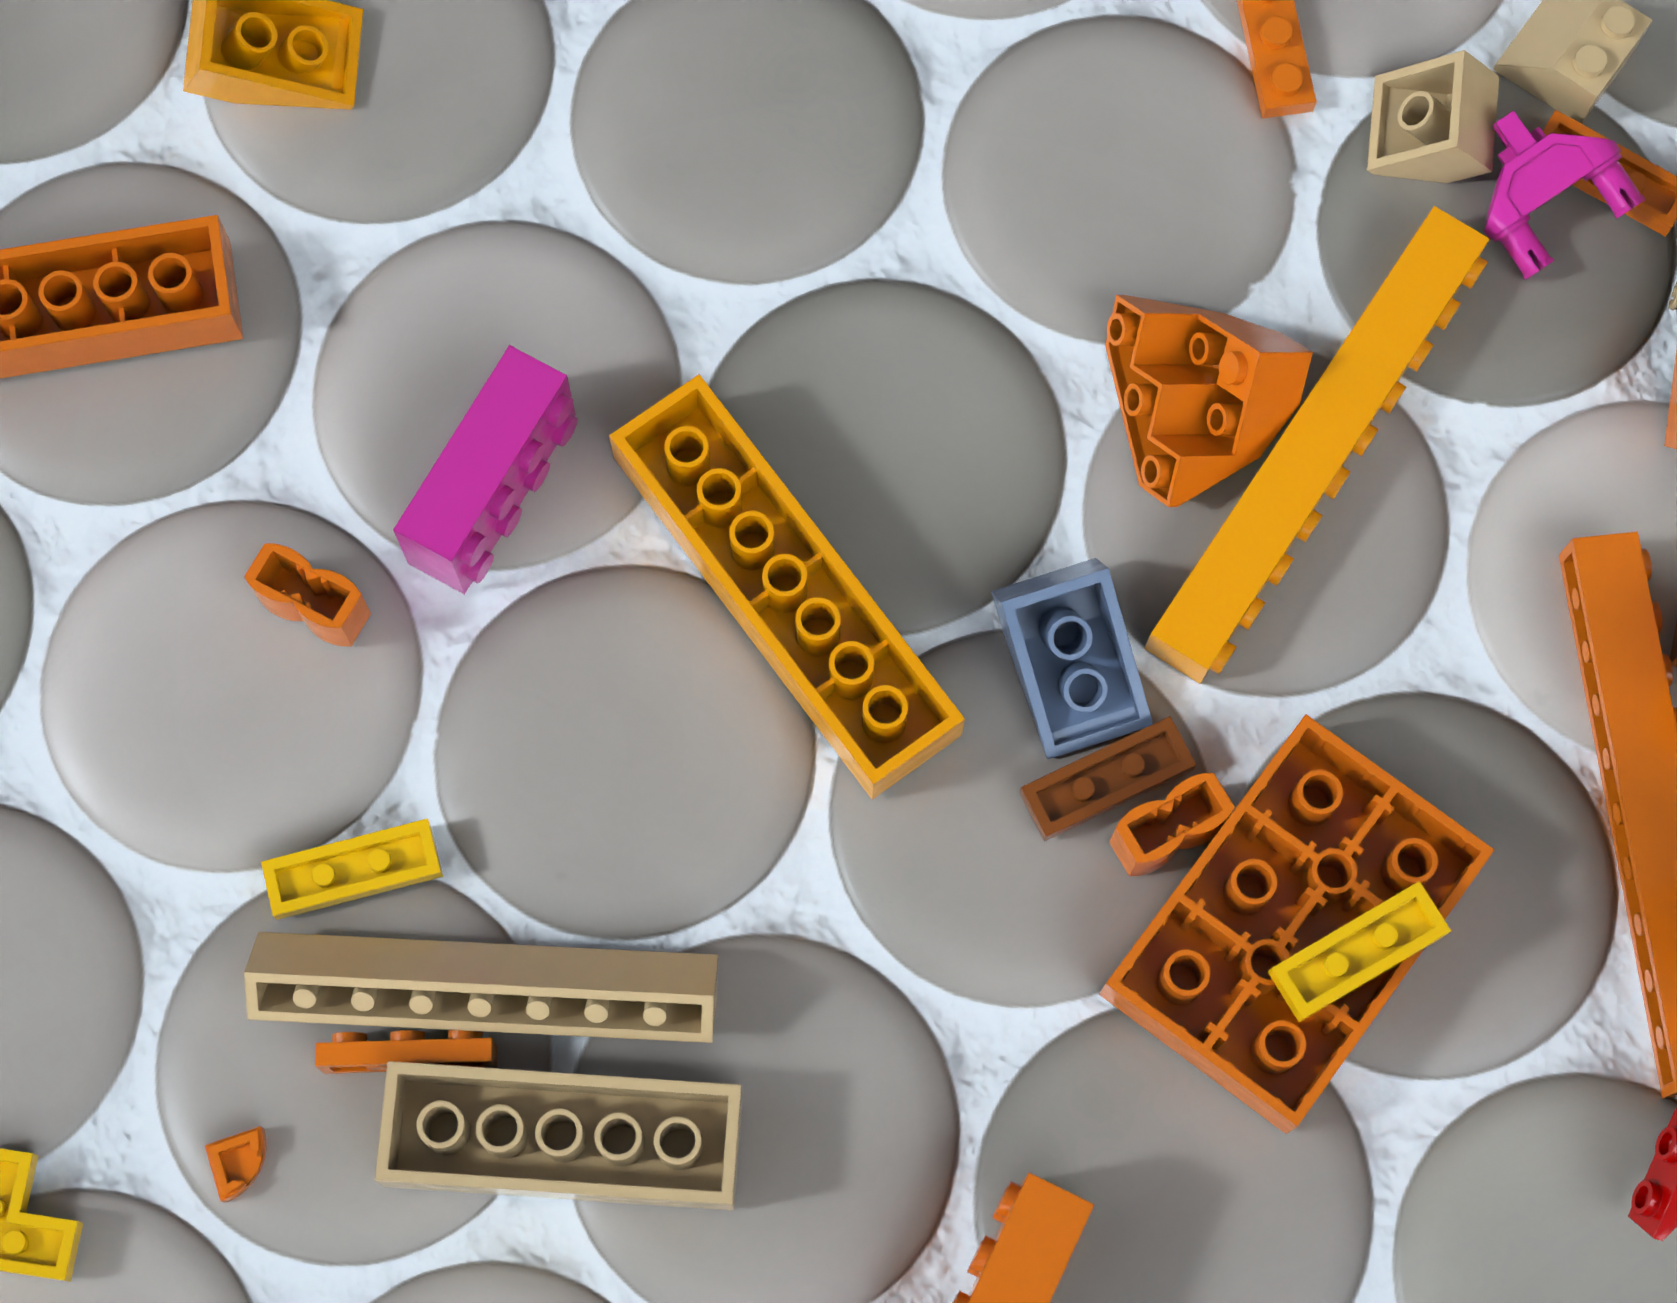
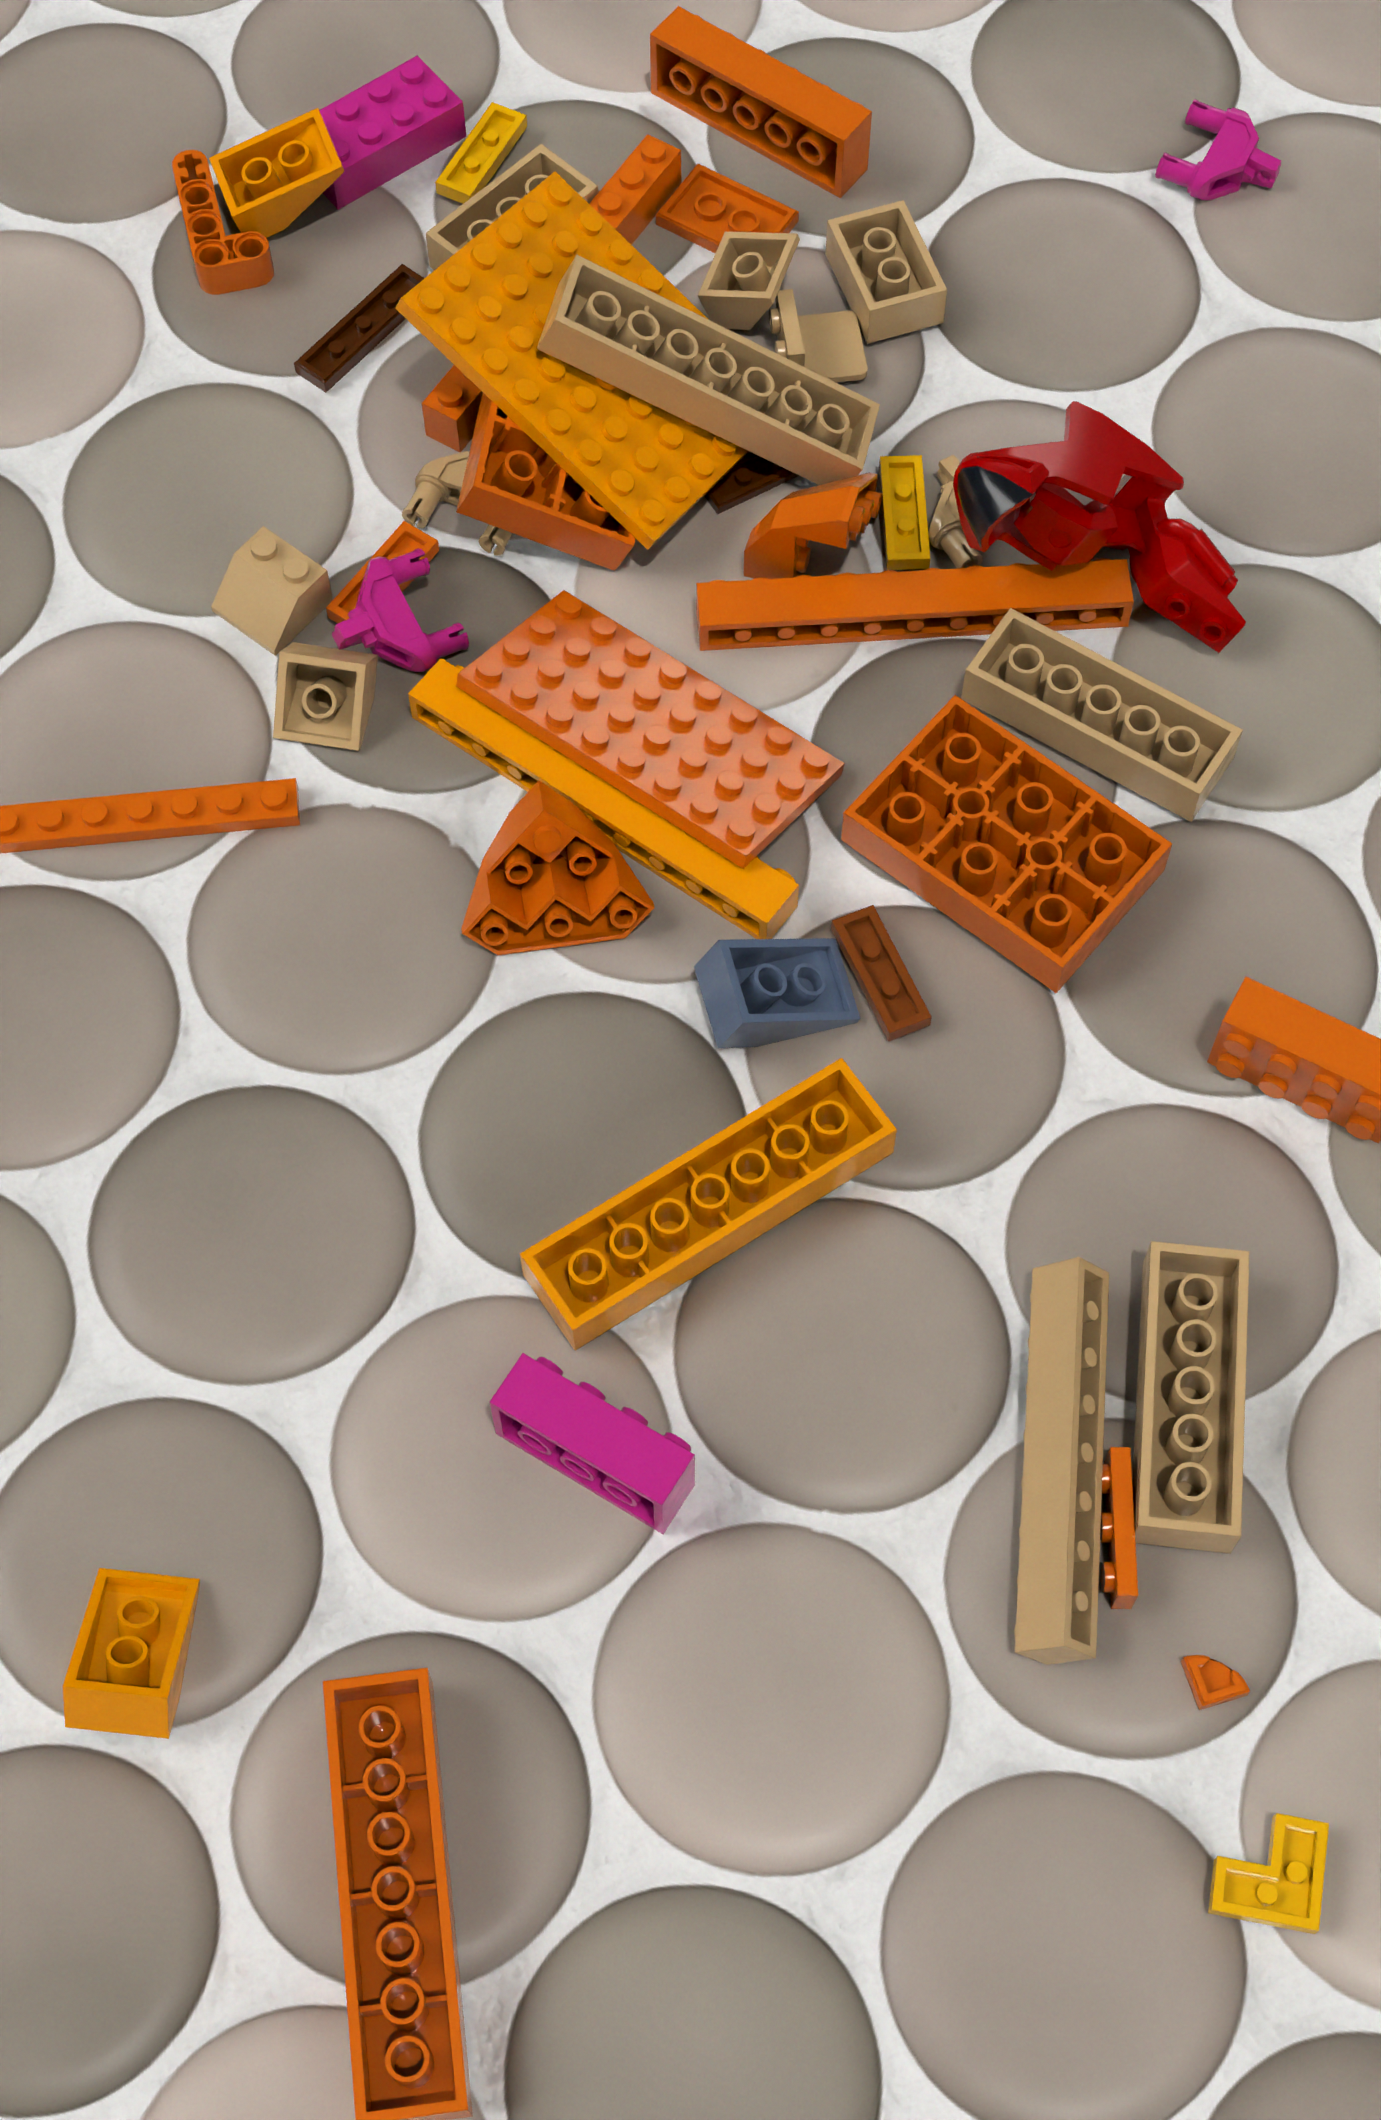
camera: 85 degrees left, 10 degrees down
(299, 593) = (709, 1598): orange brick -> none
(351, 869) = (953, 1577): yellow plate -> none
(1184, 820) = (926, 923): orange brick -> none
(1359, 951) = (1041, 785): yellow plate -> none
(1422, 492) = (651, 727): none -> orange plate
(1500, 1048) = (1100, 714): none -> tan brick

